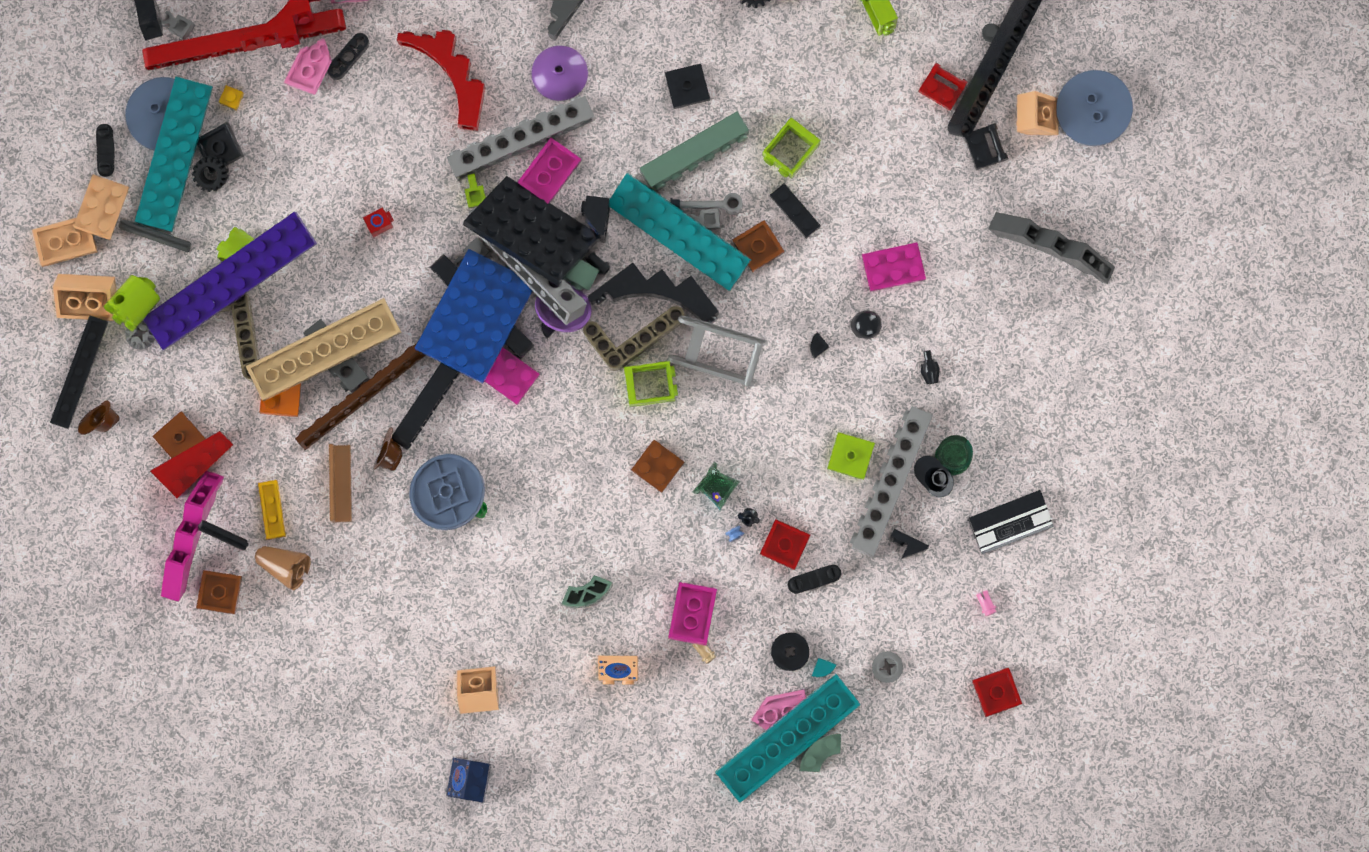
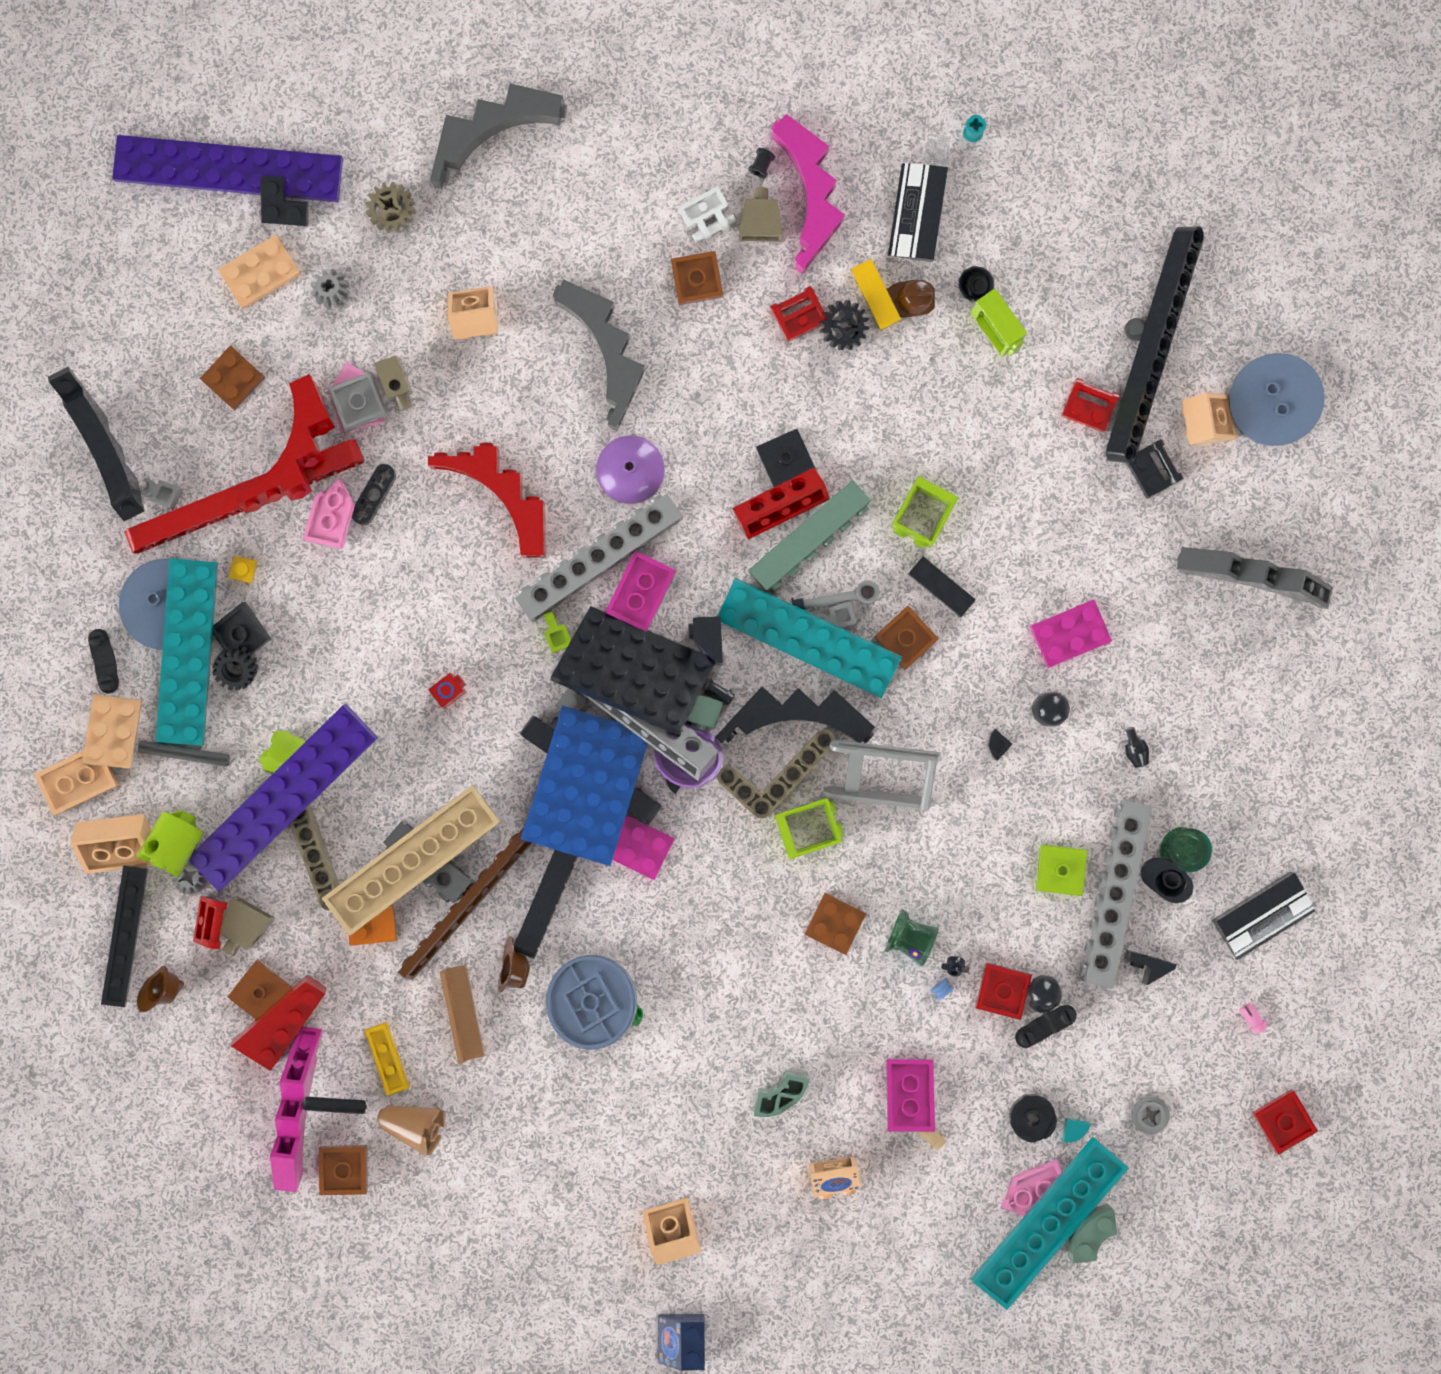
camera: 10 degrees left, 5 degrees up
(150, 372) = (209, 922): none -> red plate
(176, 381) = (243, 925): none -> dark tan torso
(676, 120) = (781, 503): none -> red brick
(817, 552) = (1044, 993): none -> black hair

